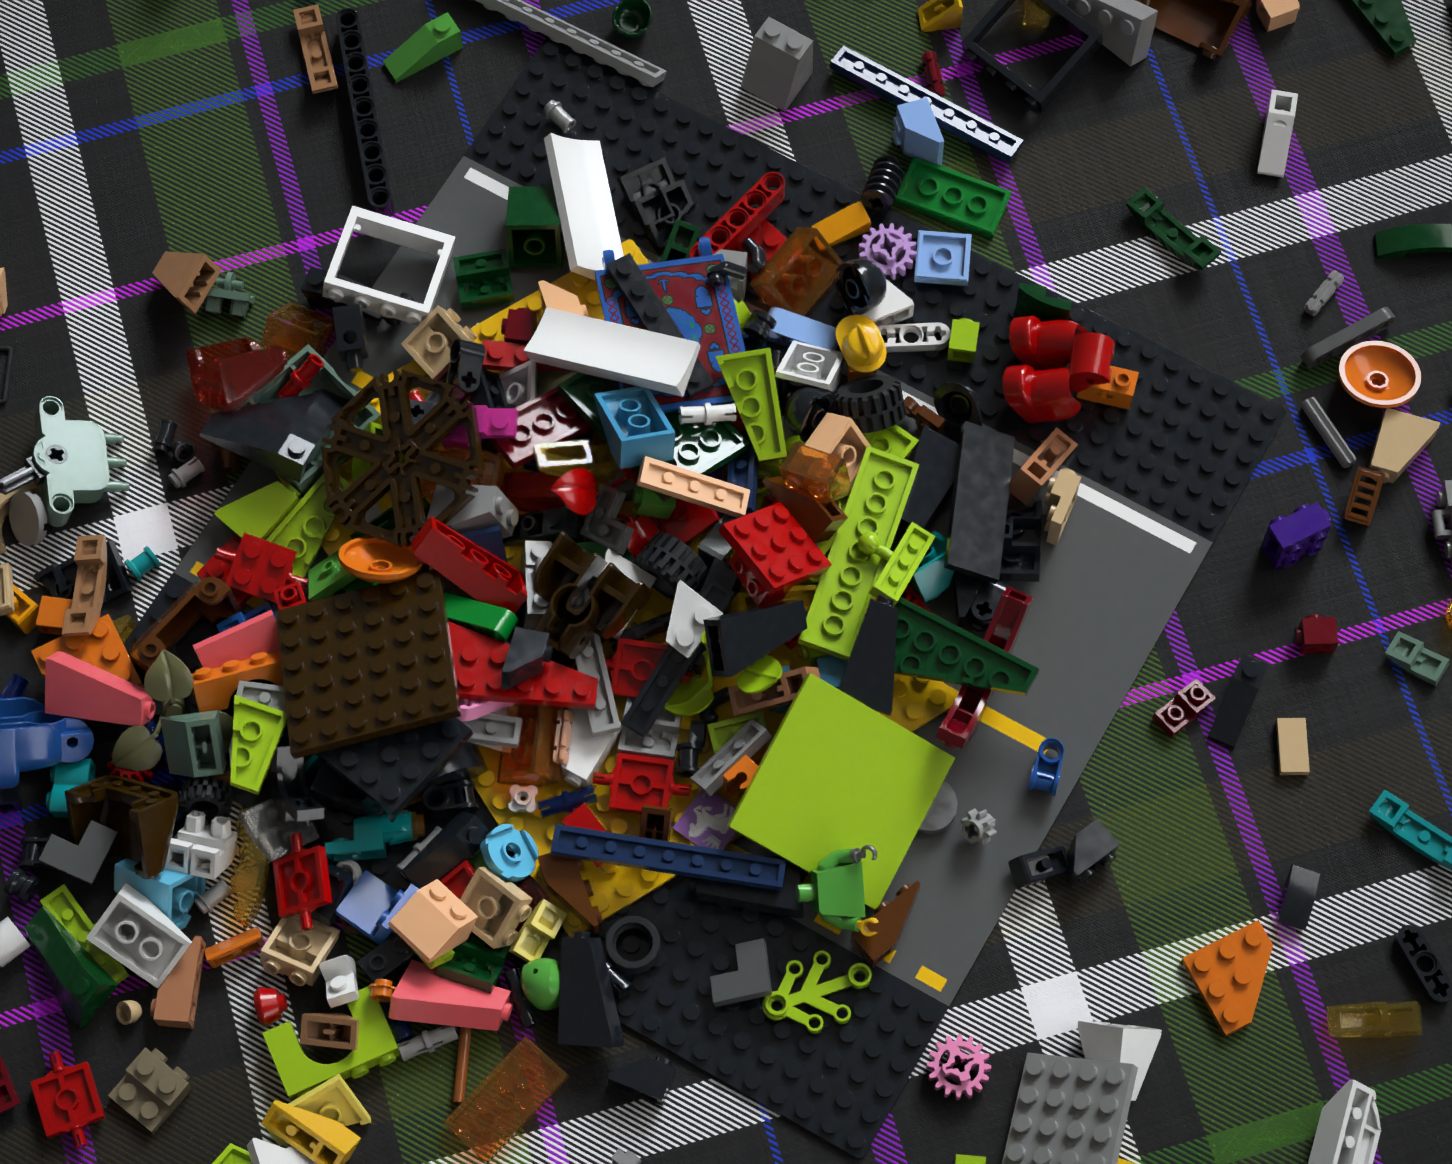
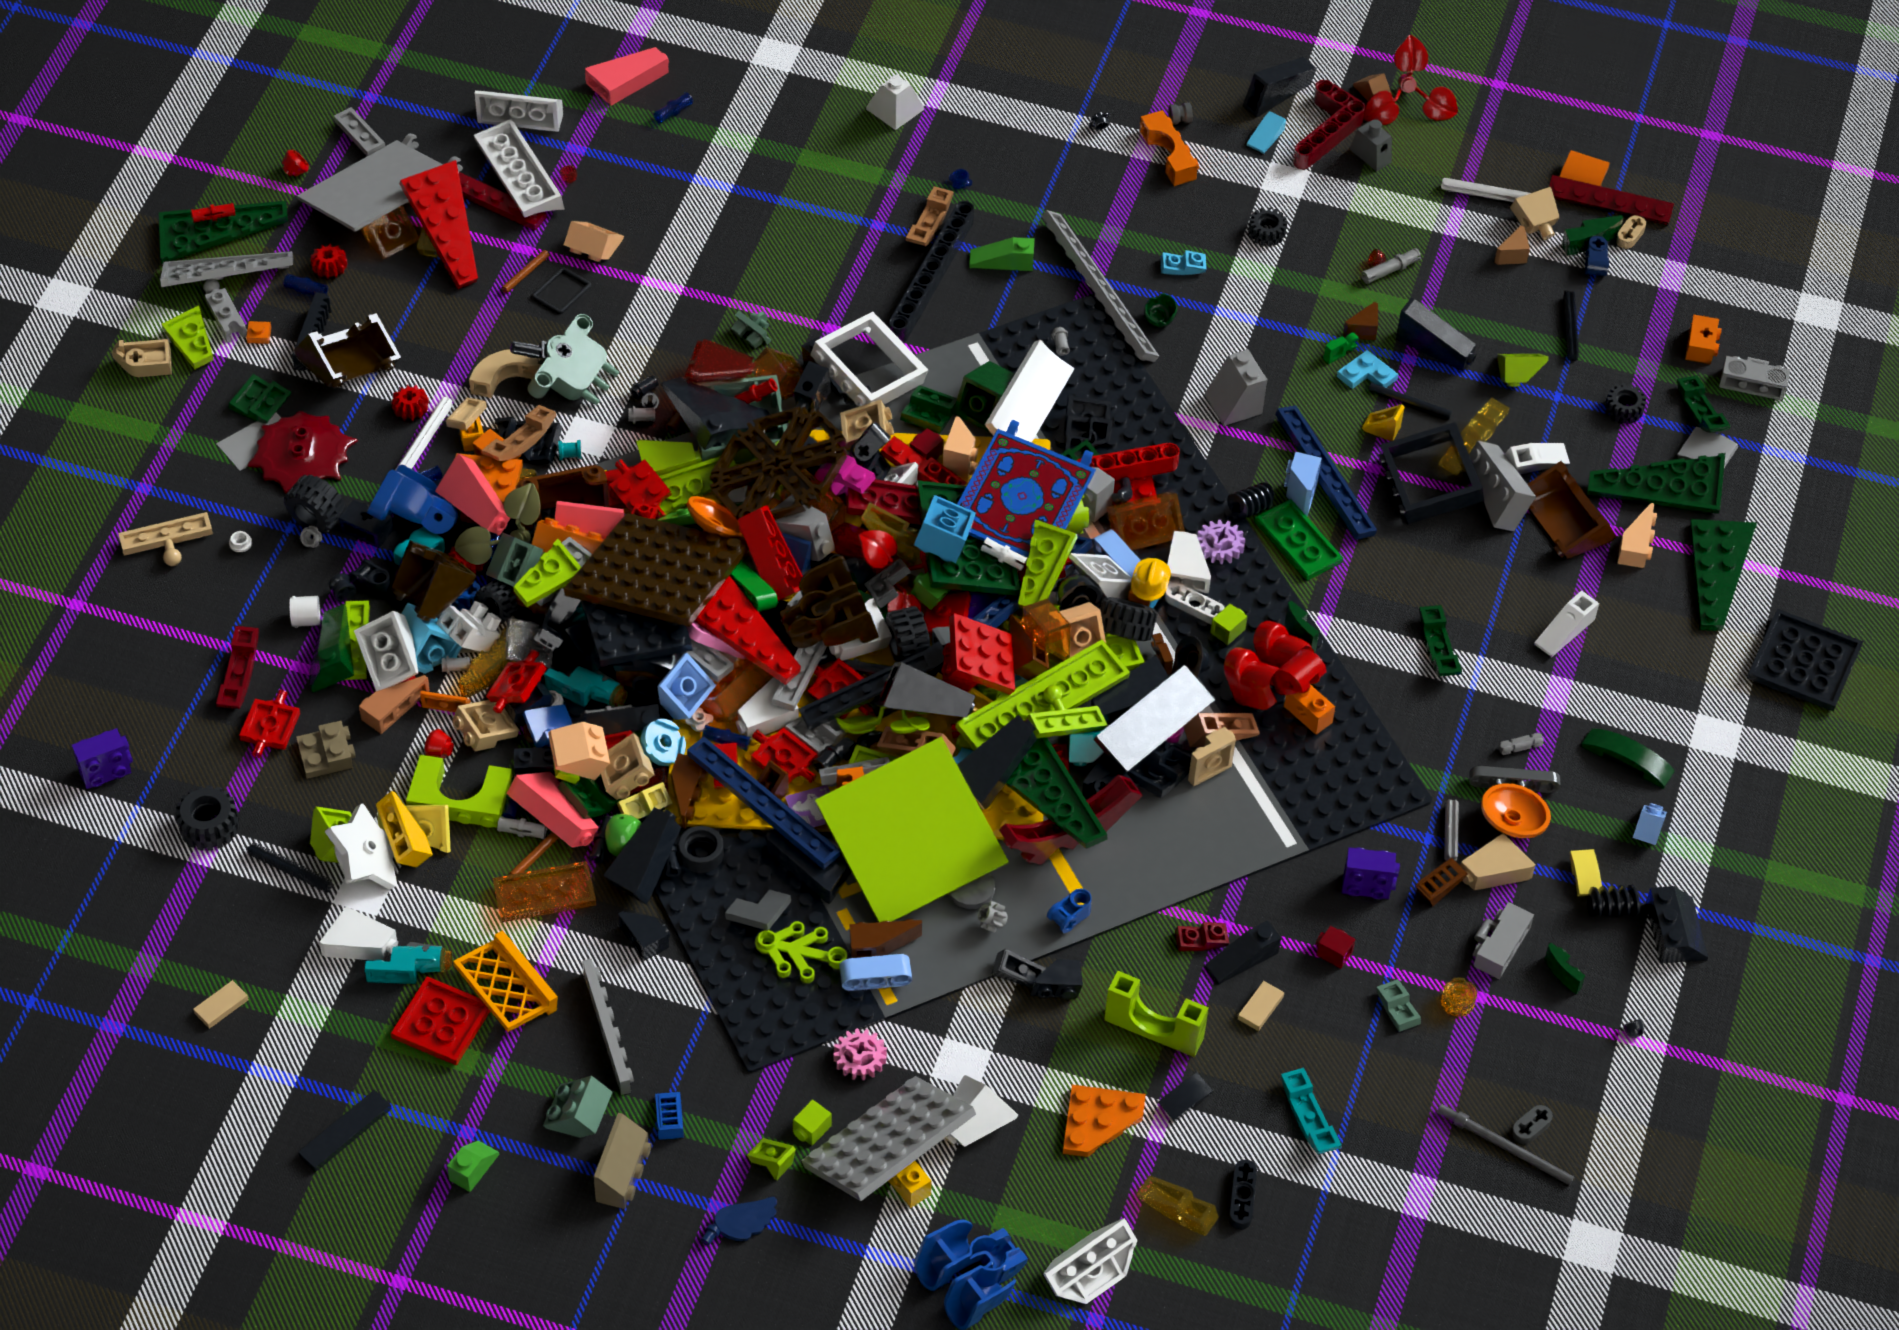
camera: 30 degrees right, 15 degrees down
(27, 518) = (517, 380): light grey tile -> none
(80, 860) = (390, 590): dark grey tile -> none
(128, 1011) = (349, 697): tan hinge -> none
(187, 277) = (733, 298): medium nougat slope -> none
(330, 1030) = (462, 777): medium nougat slope -> none
(340, 980) = (496, 753): white slope -> none
(381, 990) = (513, 770): orange plate -> none
(492, 778) = (684, 688): none -> light blue slope
(525, 656) = (760, 621): black slope -> none
(562, 737) = (752, 693): nougat axle -> none
(613, 351) = (969, 479): white arch -> none
(652, 313) = (1014, 484): black plate -> none
(687, 620) = (880, 668): white wing -> none
(693, 487) = (954, 585): light nougat plate -> none
(725, 269) = (1087, 476): black arm -> none
(759, 326) = (1089, 531): black wheel -> none
(839, 890) = (861, 888): bright green torso -> none
(844, 224) = (1203, 510): light orange slope -> none
(860, 285) = (1179, 543): black cylinder -> none
(910, 967) = (875, 972): none -> light blue beam
(933, 73) = (1347, 457): dark red axle -> none
(943, 258) = (1257, 567): light blue plate -> none
(1252, 829) = (1127, 1011): none -> lime arch

